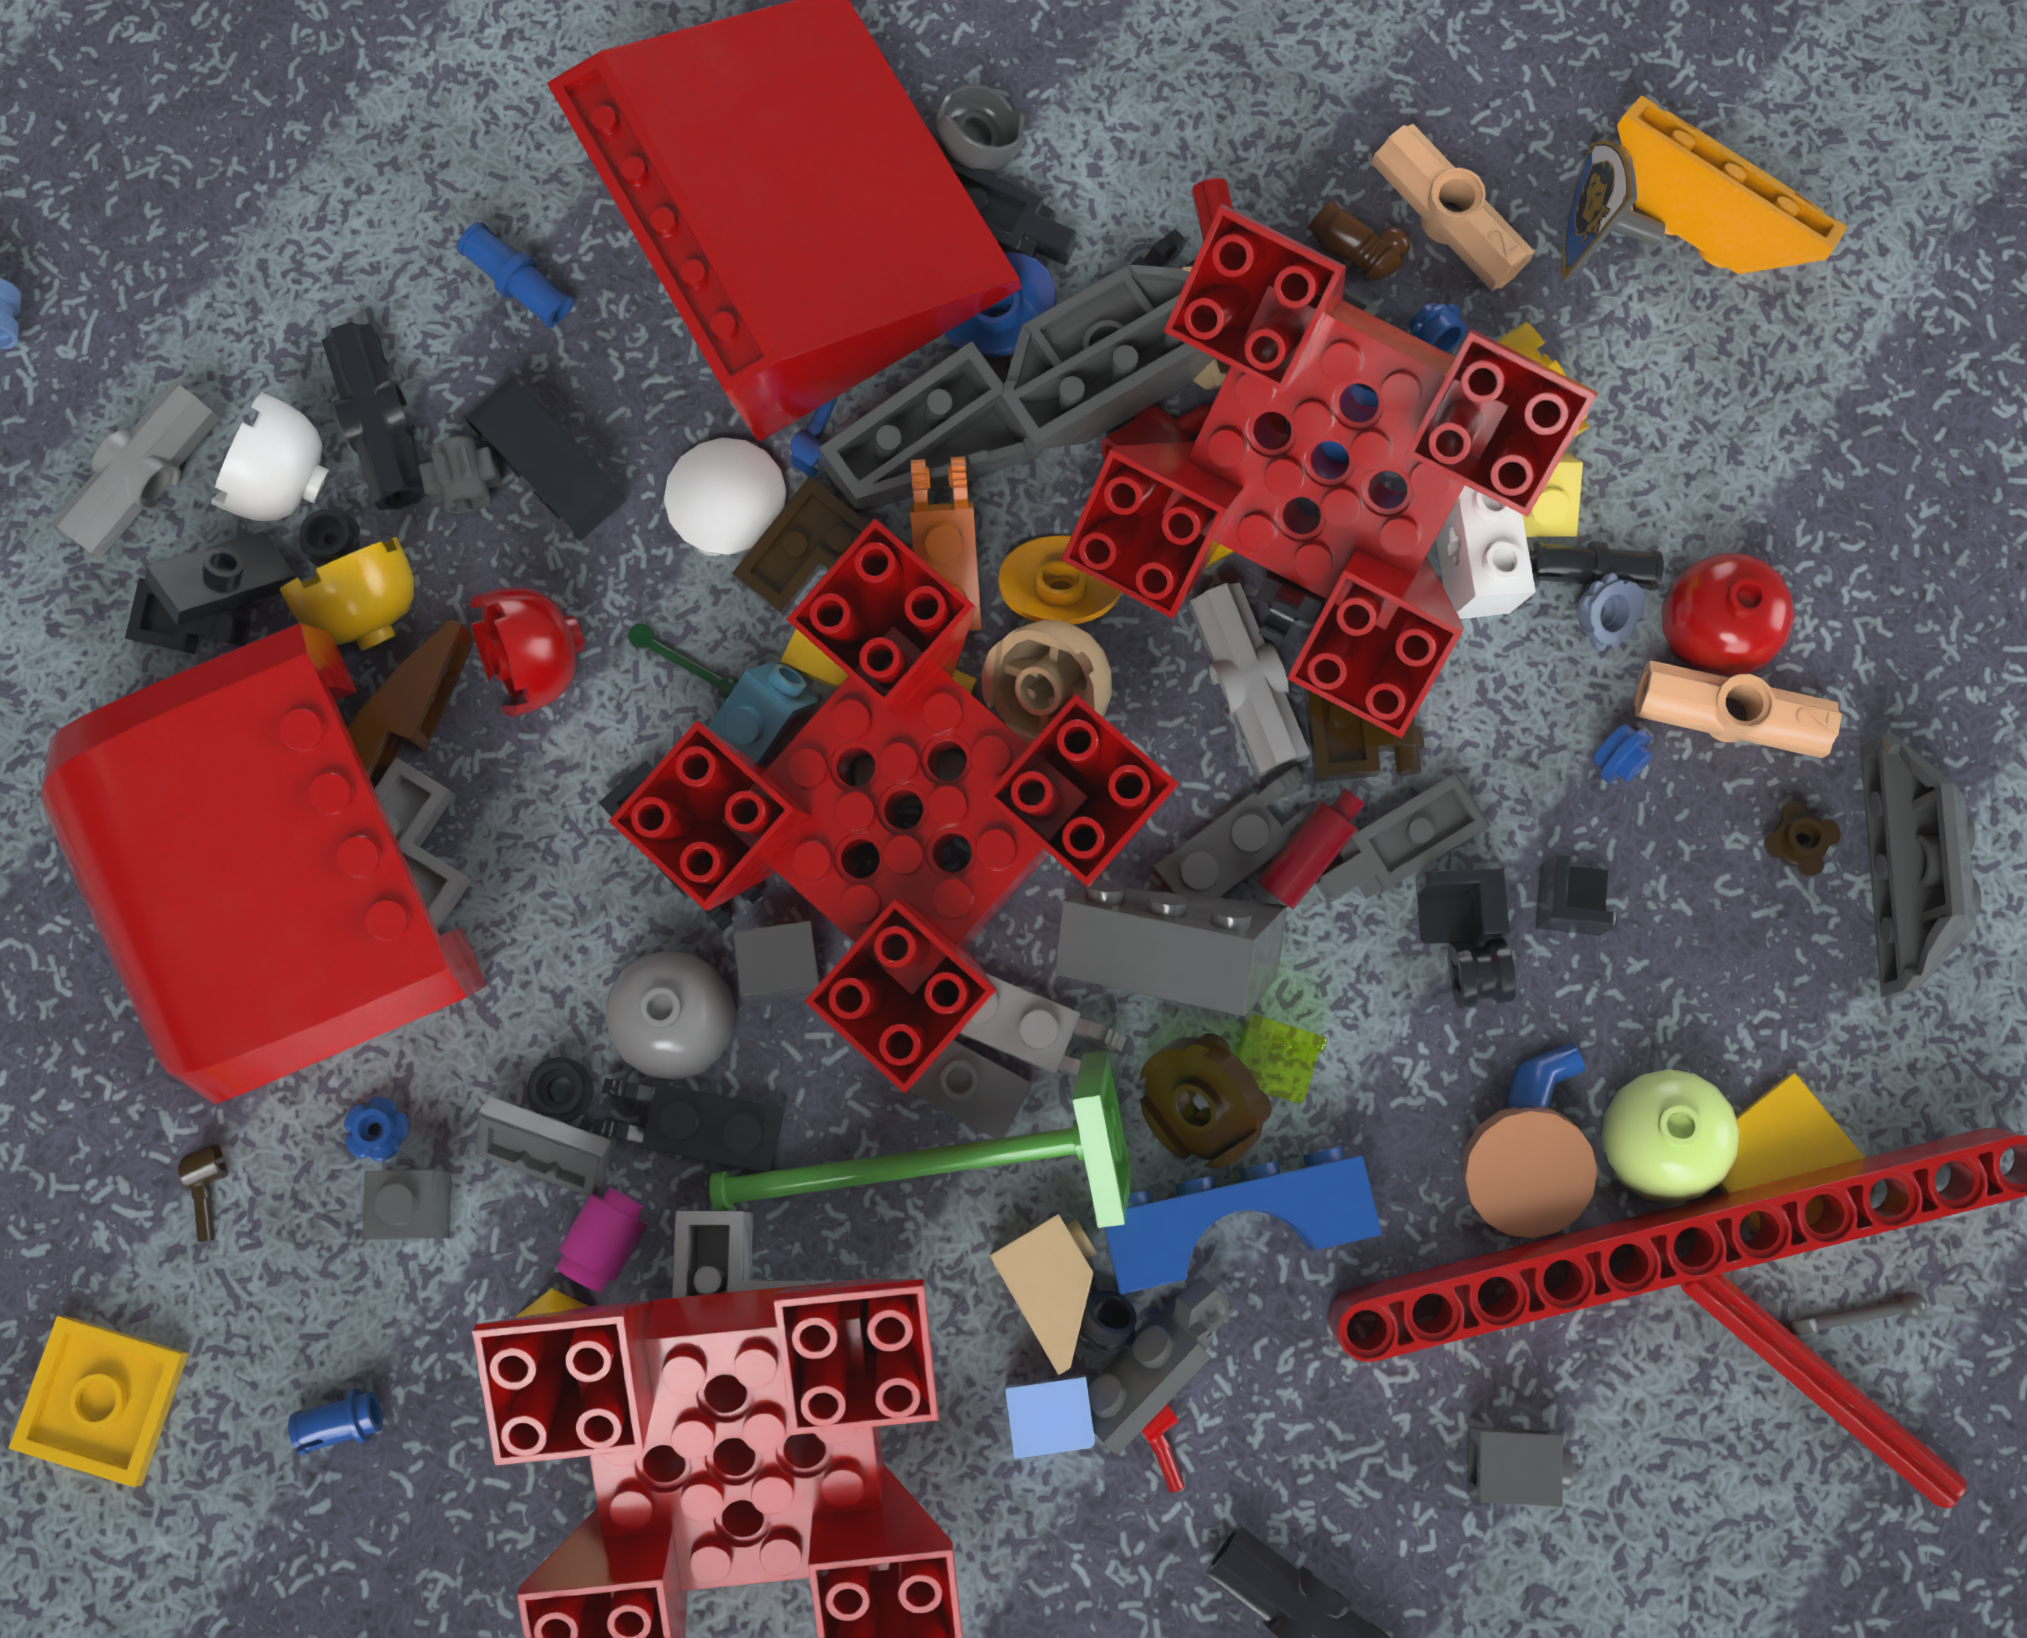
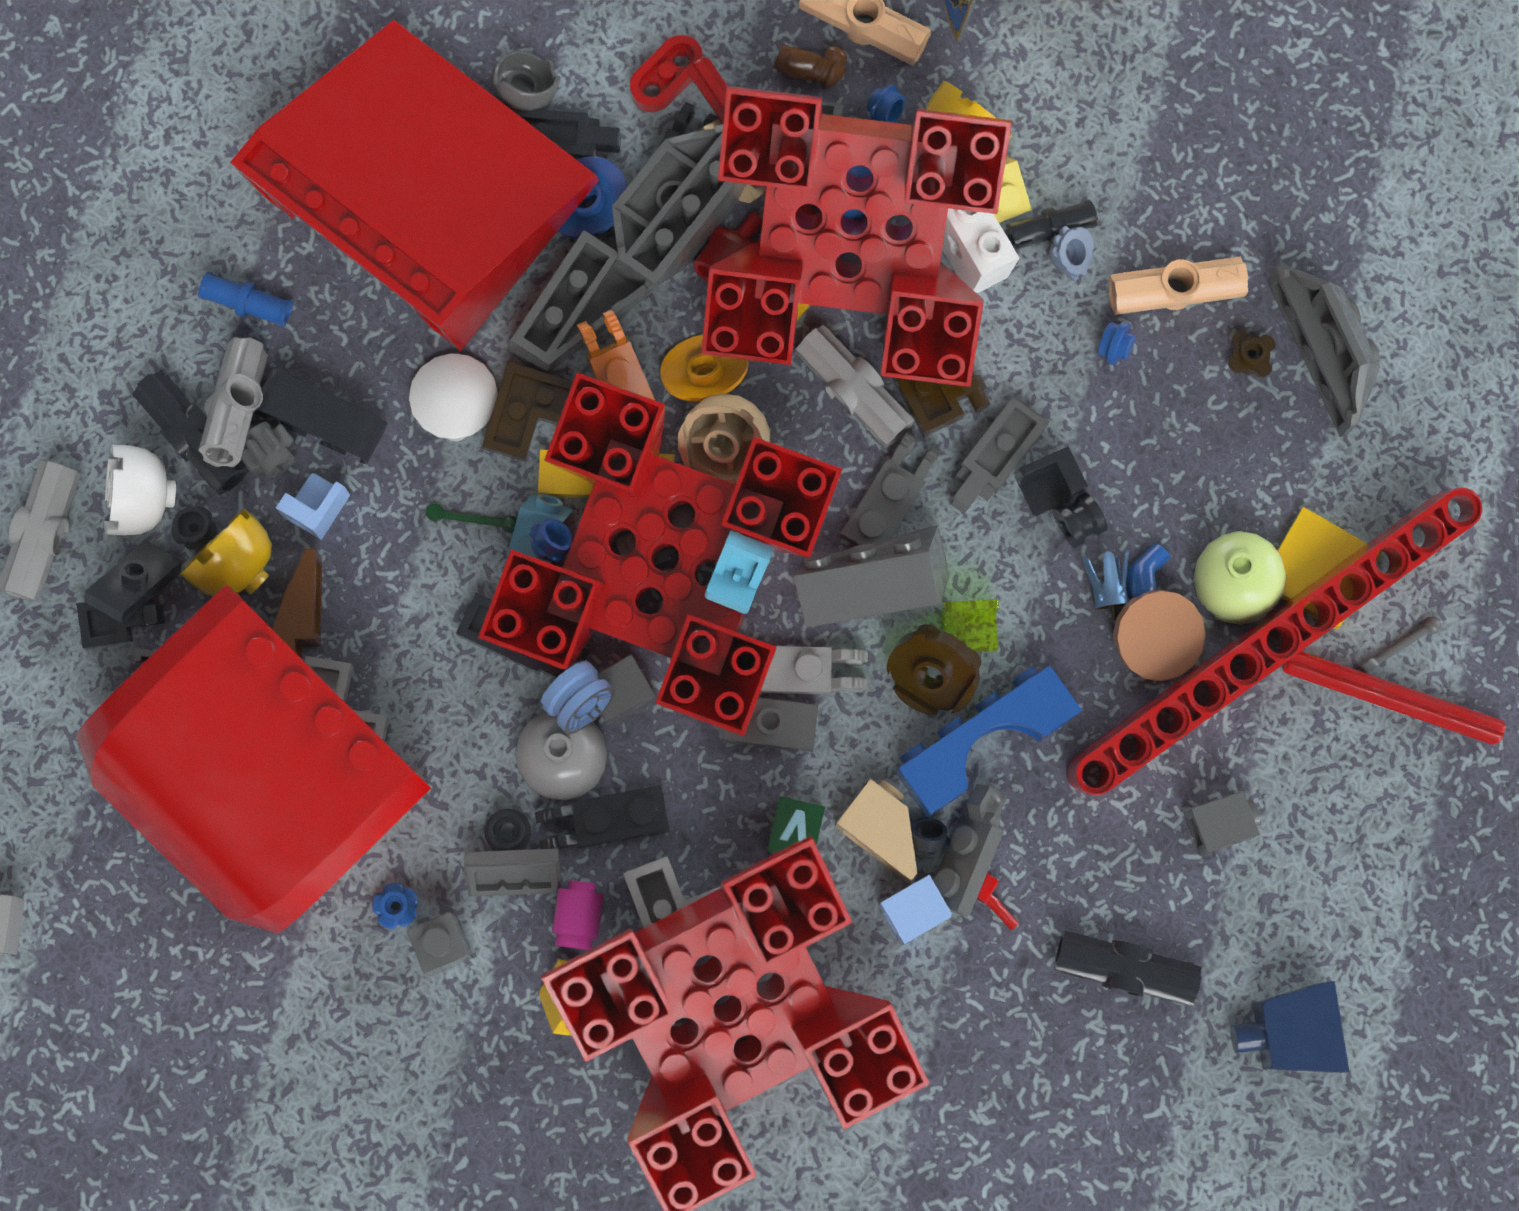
camera: 25 degrees left, 0 degrees up
(99, 1401) = (285, 1155): yellow tile -> none
(196, 1172) = (288, 979): dark brown hand -> none
(336, 1422) = (451, 1103): blue pin -> none
(419, 416) = (233, 402): none -> light grey piece
(490, 566) = (314, 505): none -> light blue panel
(526, 646) = (361, 542): red cylinder -> none
(710, 951) = (577, 697): none -> medium blue wheel
(764, 729) = (551, 540): none -> blue plate
(806, 442) = (497, 343): blue hand -> none
(931, 1242) = (793, 823): none -> dark green brick
(986, 868) = (738, 572): none -> medium azure bracket
(1095, 1137) = (873, 721): bright green tile -> none
(1162, 184) = (663, 73): none -> red plate
(1287, 604) = (860, 327): black plate -> none
(1312, 849) = (940, 481): dark red cylinder -> none
(1490, 1087) = (1114, 590): none -> flat silver piece
(1573, 898) = (1120, 449): black panel -> none
(1728, 614) = (1149, 225): red cylinder -> none

